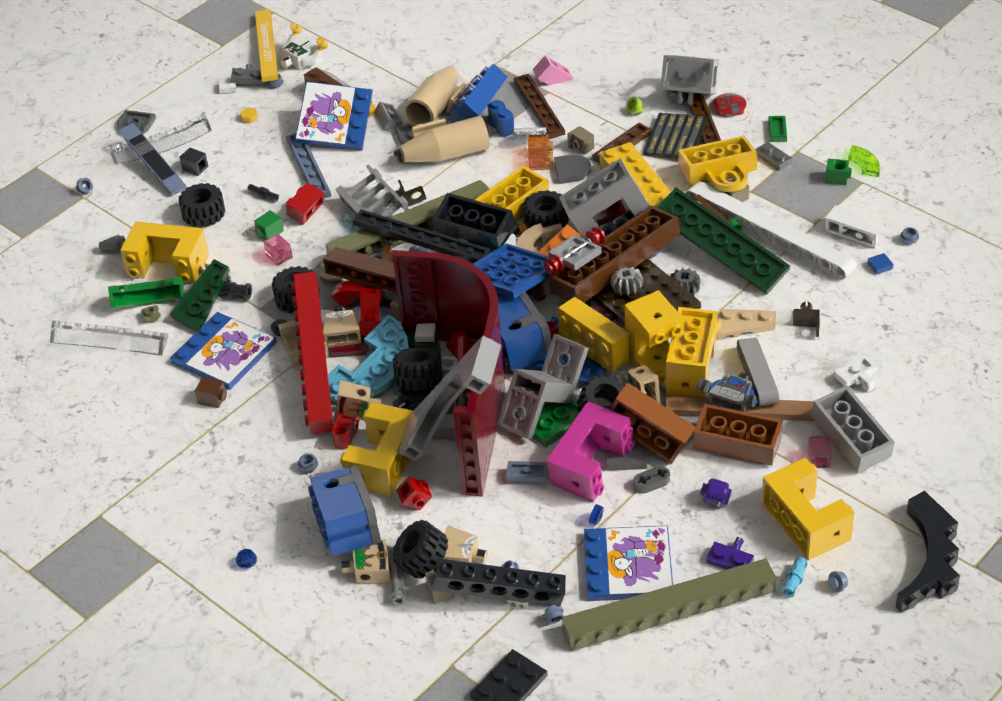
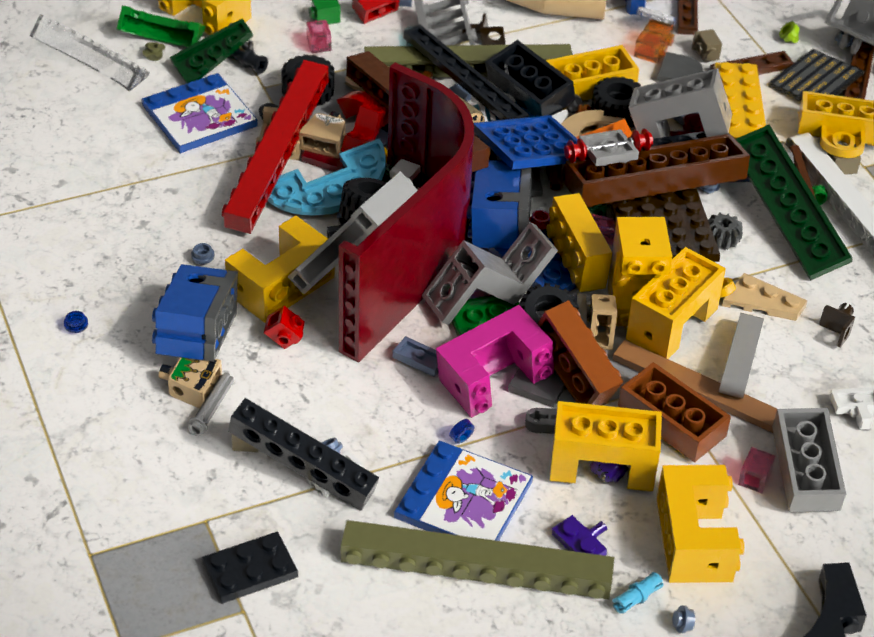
camera: 20 degrees right, 0 degrees up
(210, 392) = (155, 146): reddish brown brick -> none
(344, 430) = (260, 236): red piece -> none
(354, 399) = (283, 205): tan torso -> none
(419, 548) = (247, 378): black tyre -> none
(463, 546) = (292, 403): tan torso -> none
(553, 614) = (343, 513): sand blue plate -> none
(626, 281) = (651, 200): light grey gear -> none
(710, 473) = (606, 436): none -> yellow piece
(730, 392) = (692, 363): torso -> none

